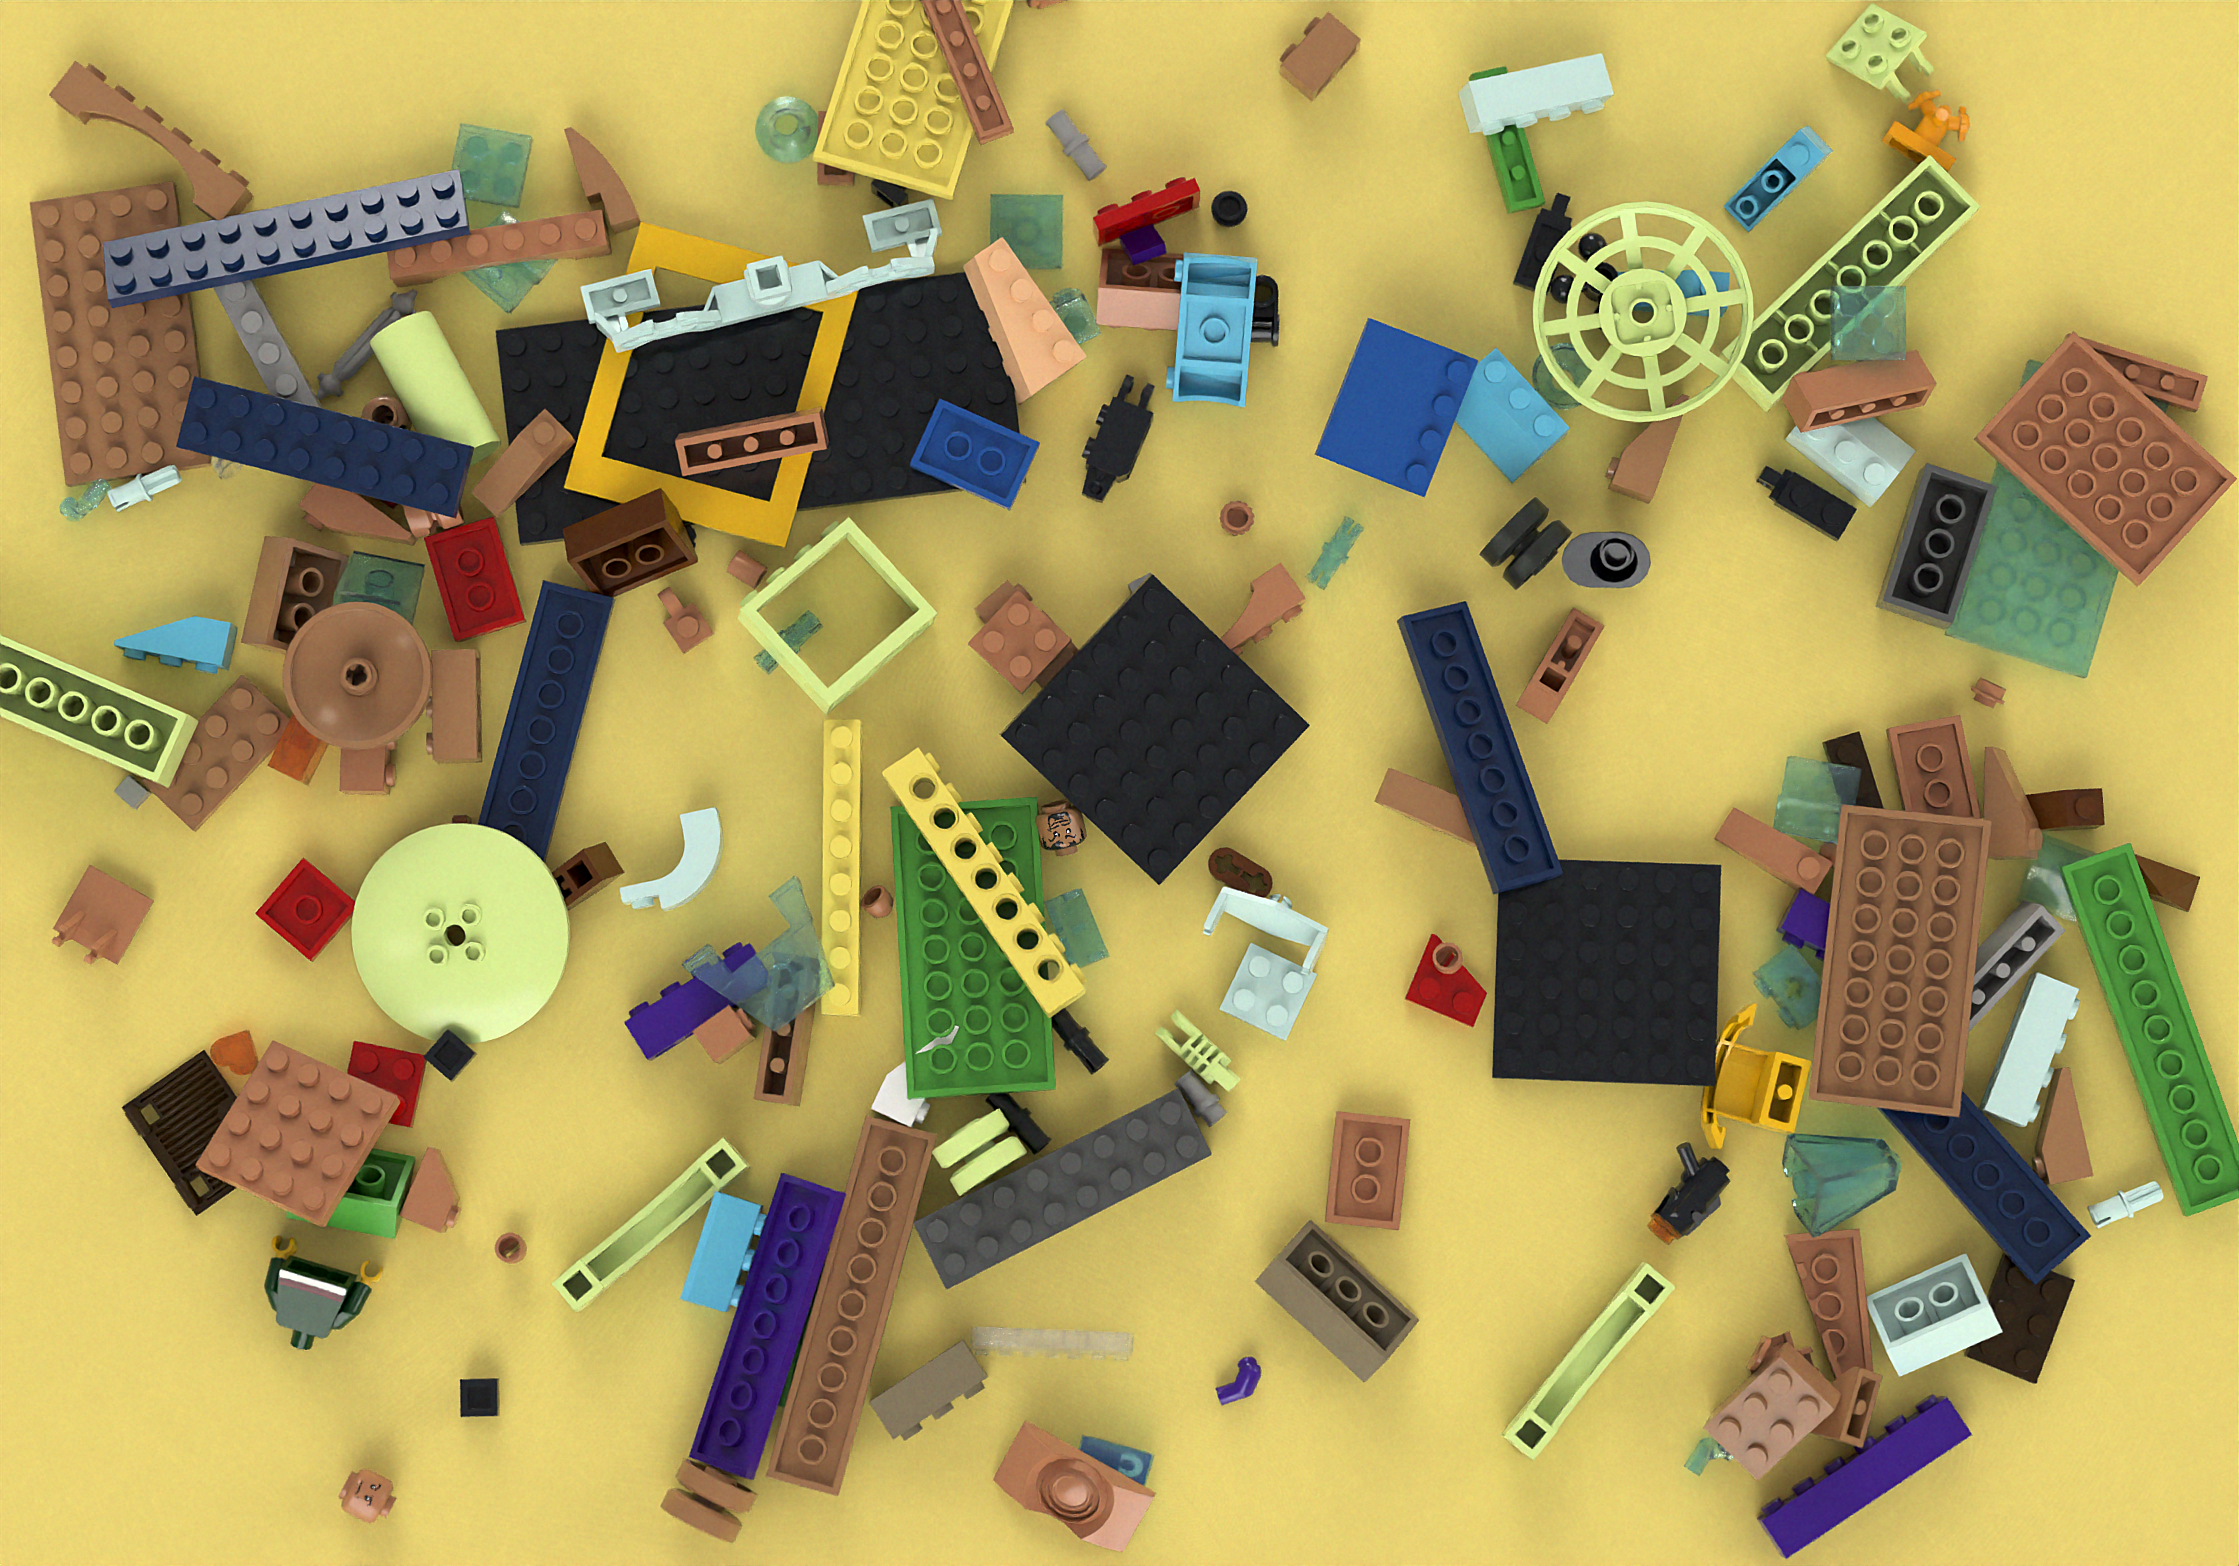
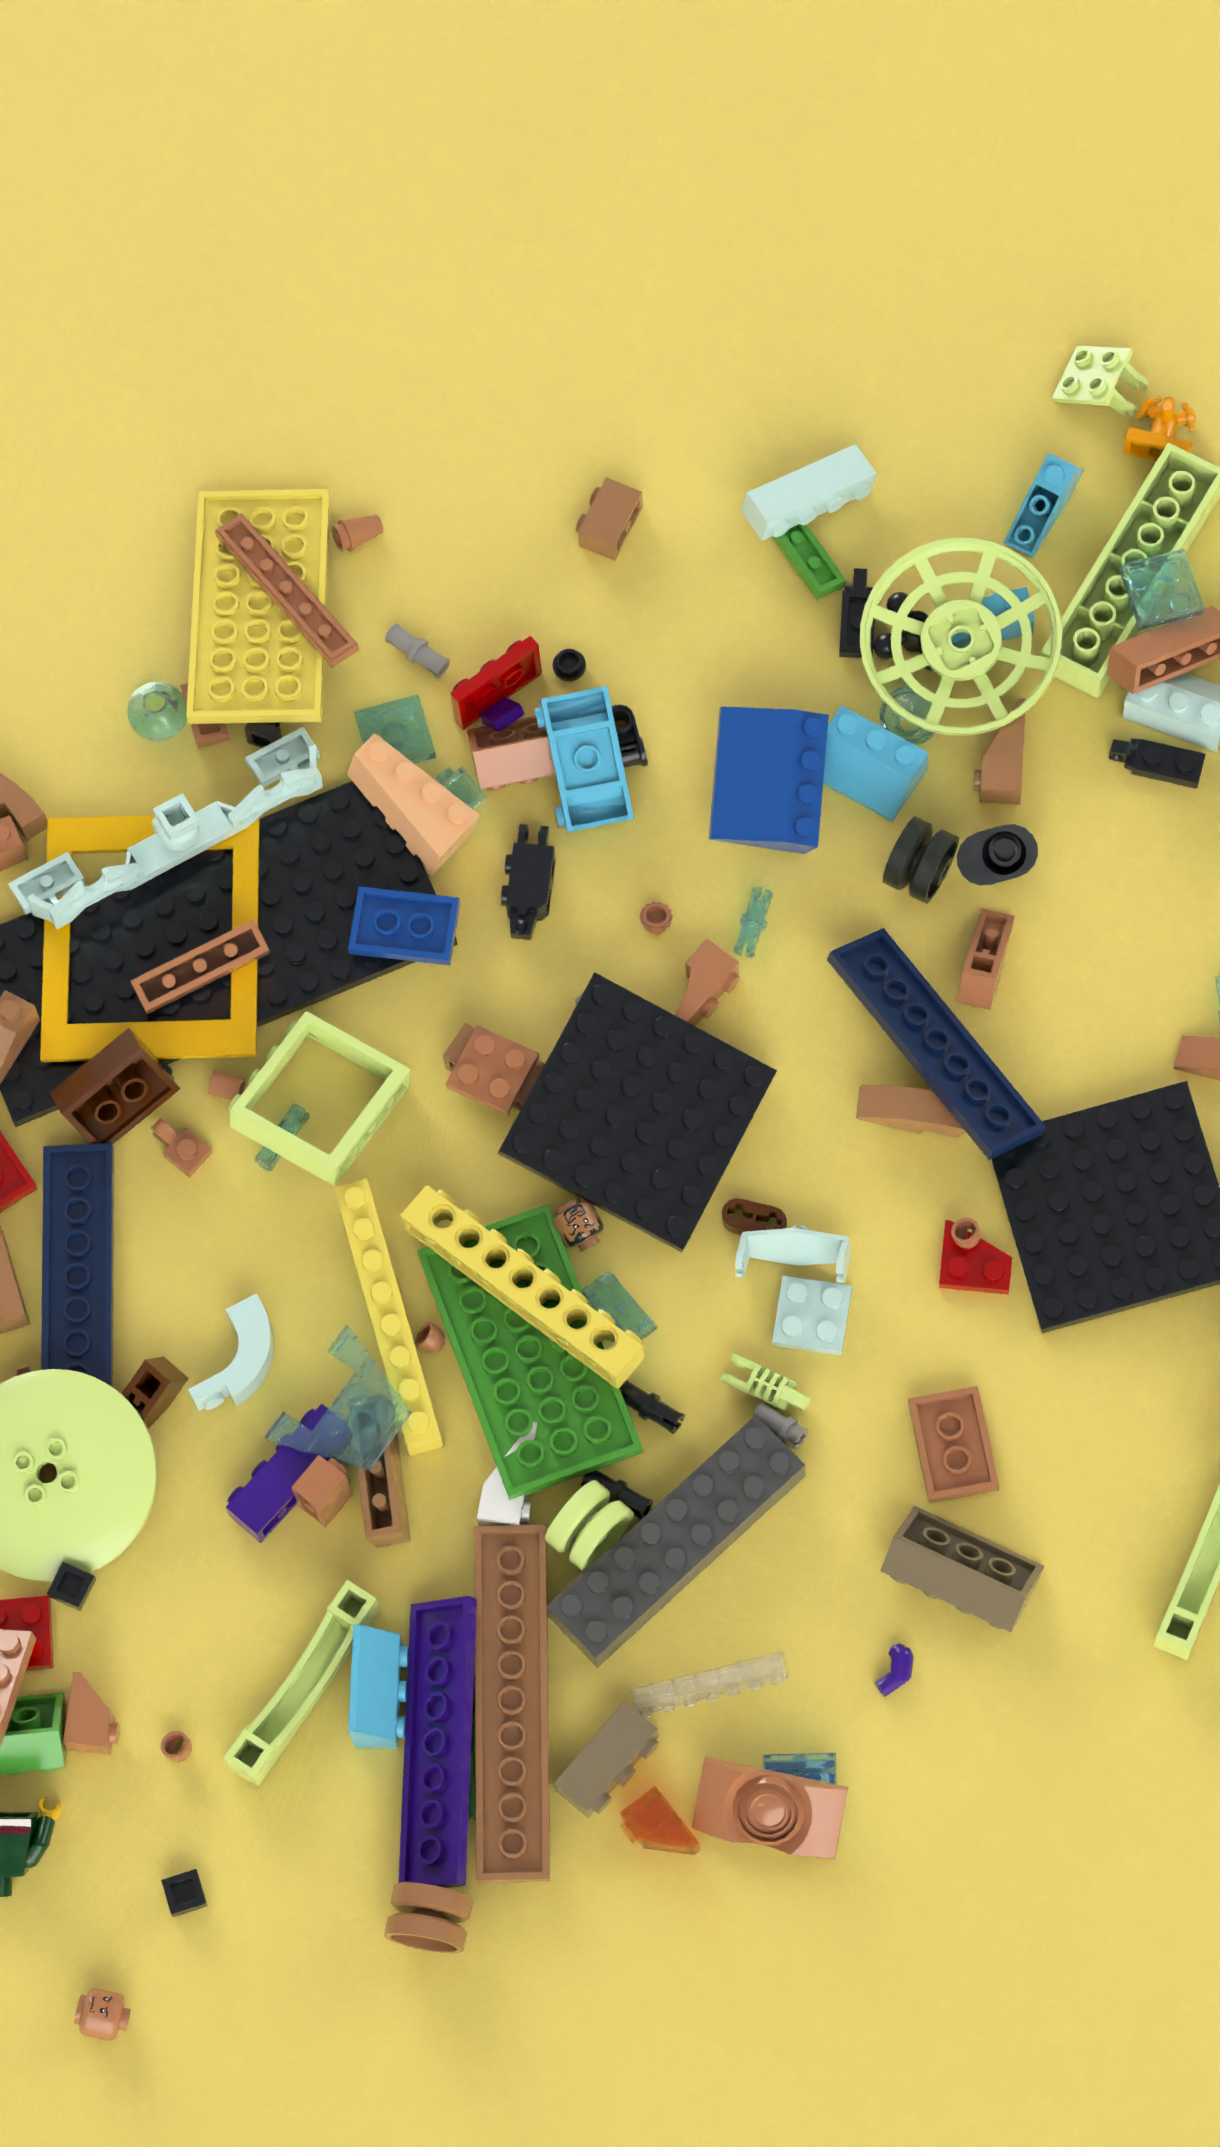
camera: 10 degrees left, 15 degrees down
(959, 1470) = (657, 1825): none -> clear orange slope

